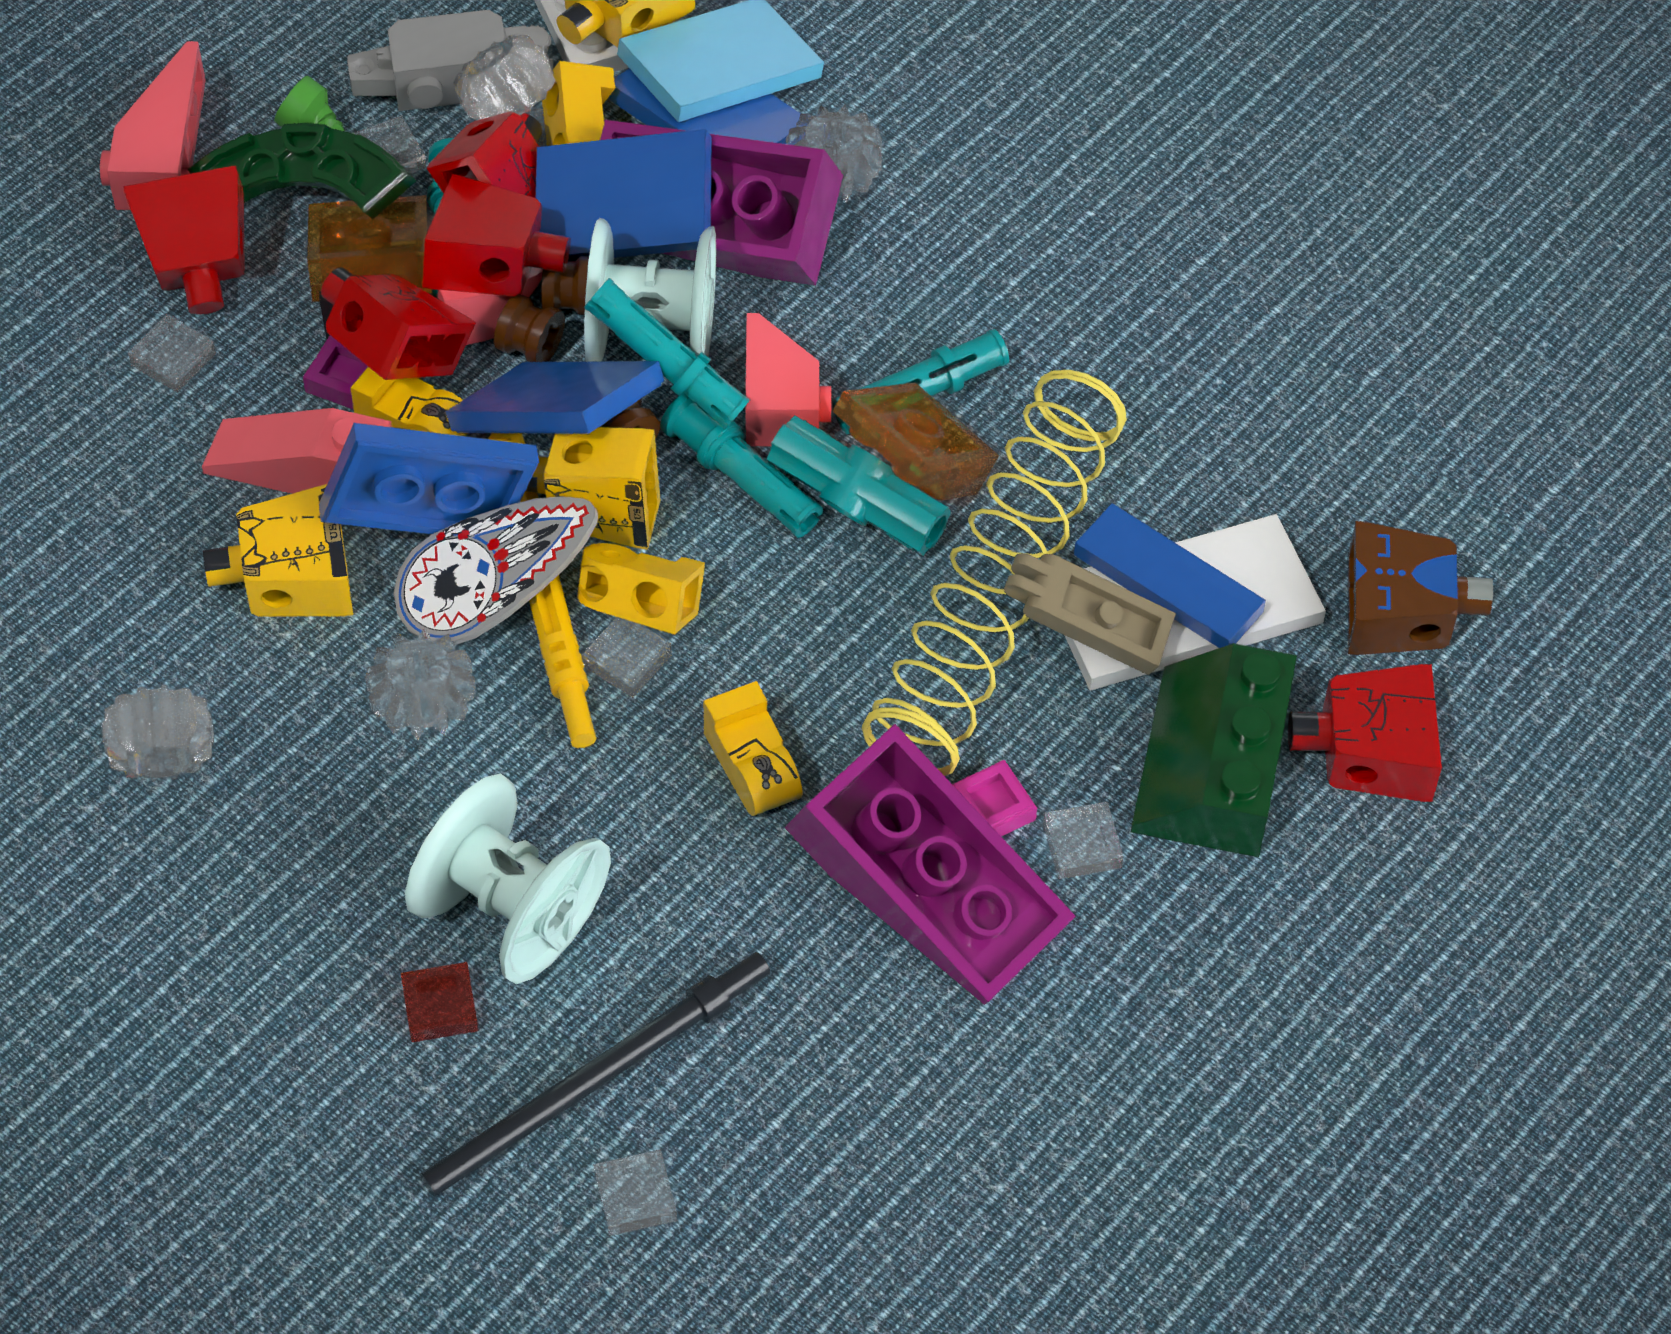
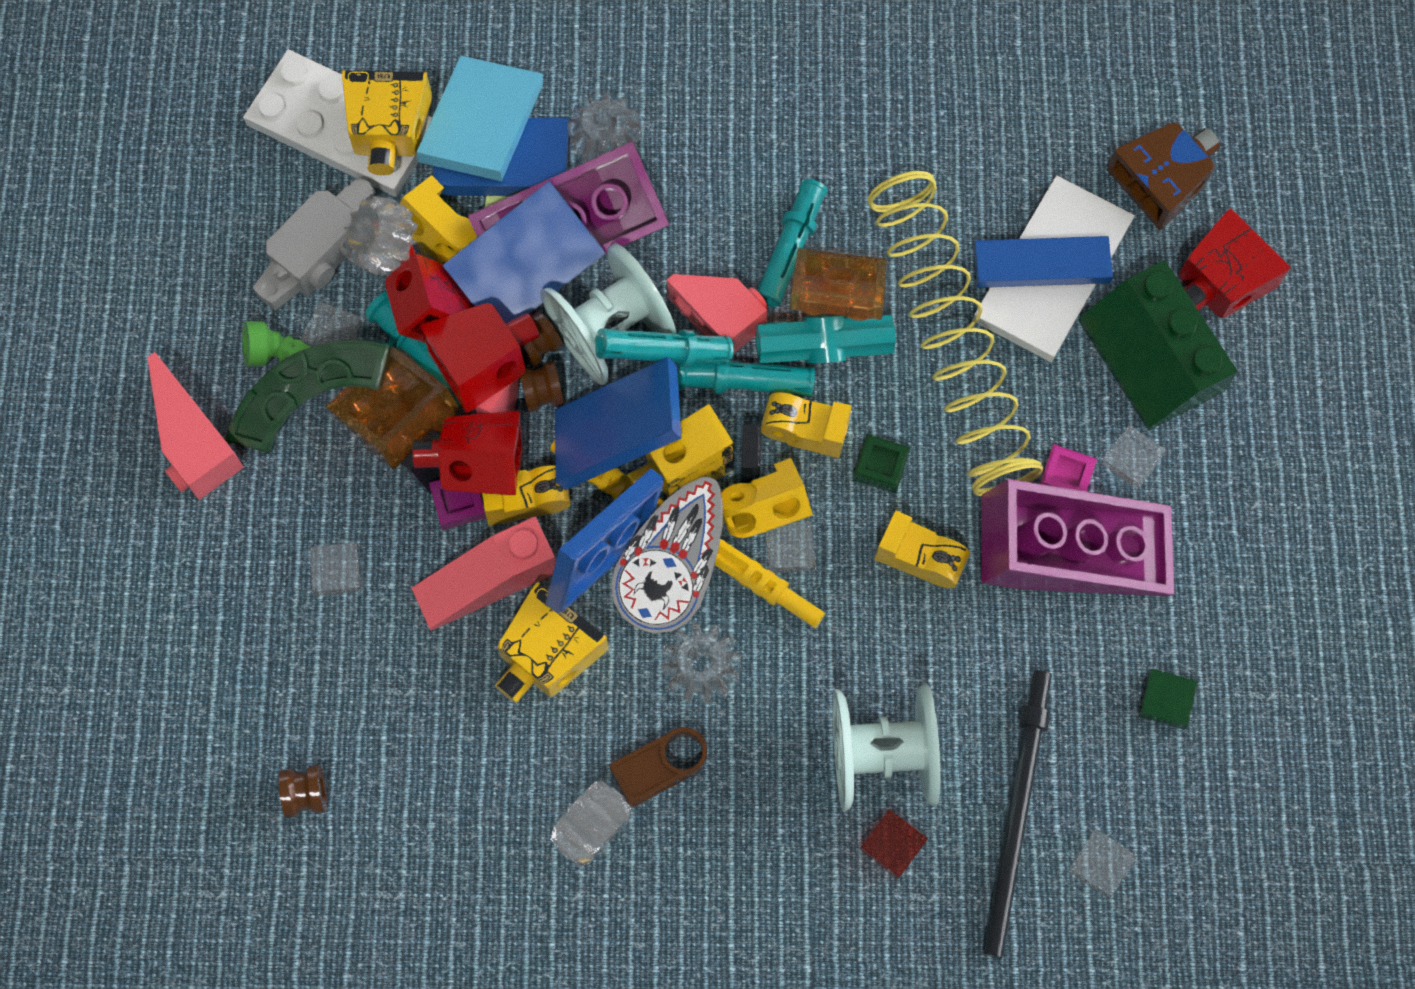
camera: 40 degrees left, 15 degrees up
(192, 232) = (281, 484): red torso -> none
(270, 742) = (648, 772): none -> reddish brown piece
(674, 530) = (750, 452): none -> black tile
(762, 554) = (806, 423): none -> yellow leg
(803, 649) = (881, 463): none -> dark green tile
(873, 1093) = (1168, 699): none -> dark green tile
(1091, 610) = (1035, 318): dark tan hinge -> none

